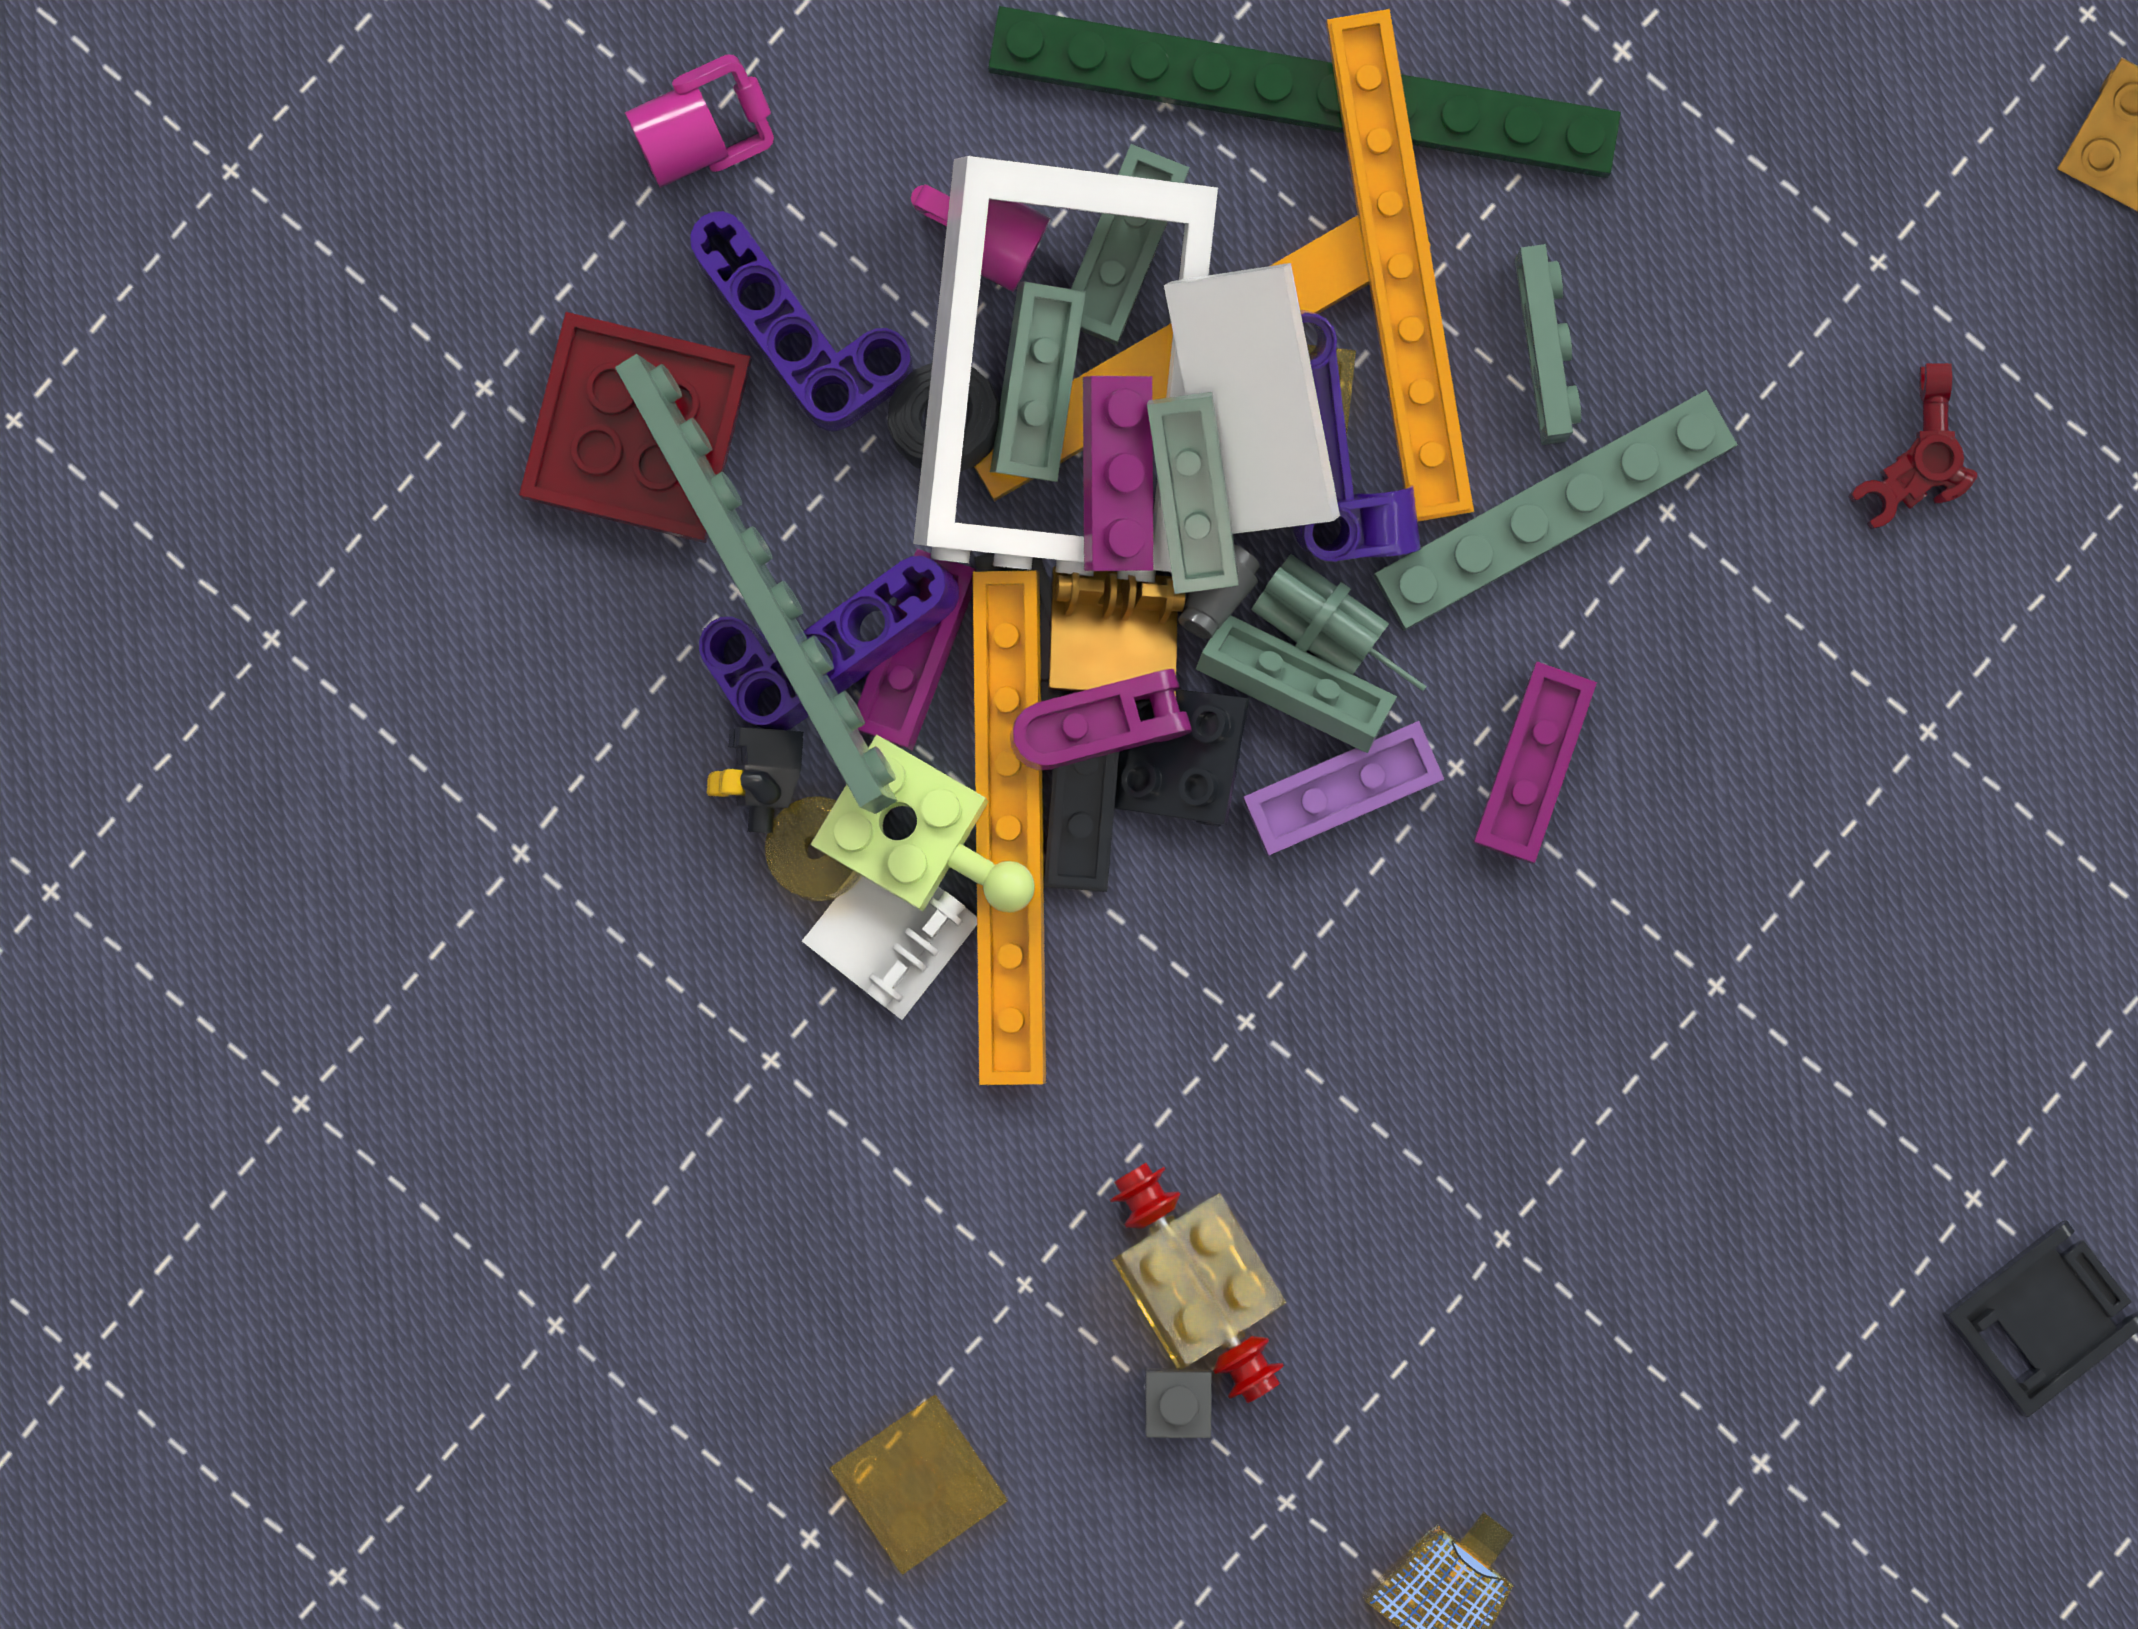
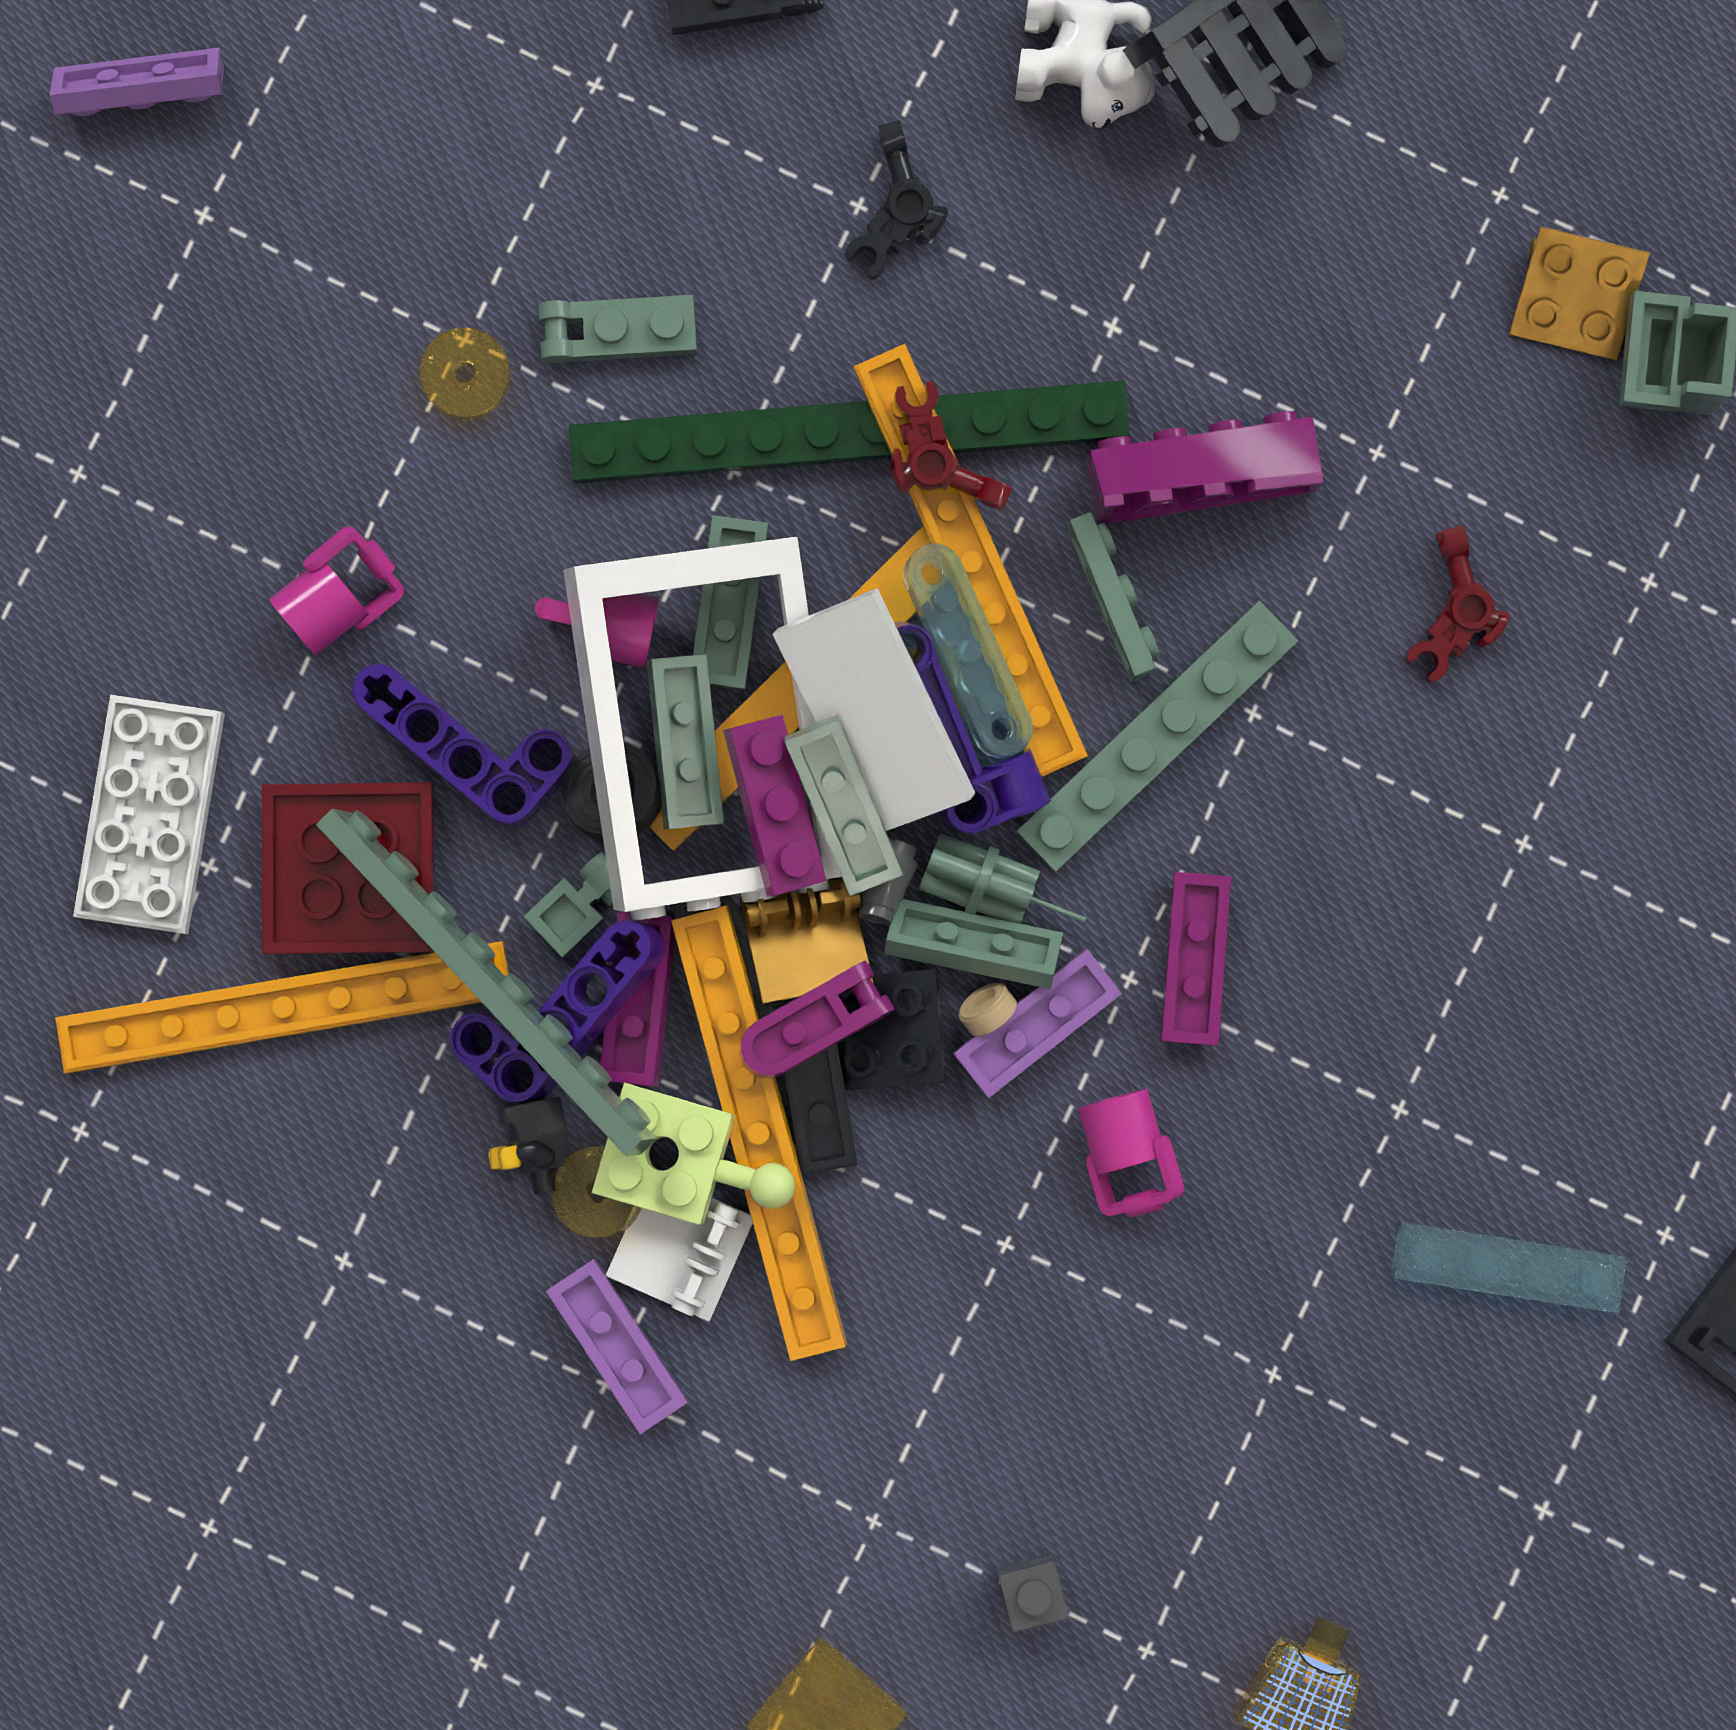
camera: 20 degrees left, 0 degrees up
(434, 314) = (149, 814): none -> white tile
(506, 559) = (263, 1011): none -> light orange tile
(795, 1020) = (617, 1346): none -> medium lavender plate
(862, 540) = (567, 915): none -> sand green plate
(1198, 1282) = (1022, 1482): clear yellow plate -> none
(1292, 758) = (987, 1009): none -> tan tile
(1372, 361) = (968, 651): none -> clear light blue plate
(1385, 143) = (930, 460): none -> dark red piece
(1406, 932) = (1121, 1135): none -> dark pink piece
(1683, 231) = (1204, 469): none -> magenta wedge
(1791, 1188) = (1509, 1267): none -> clear light blue plate

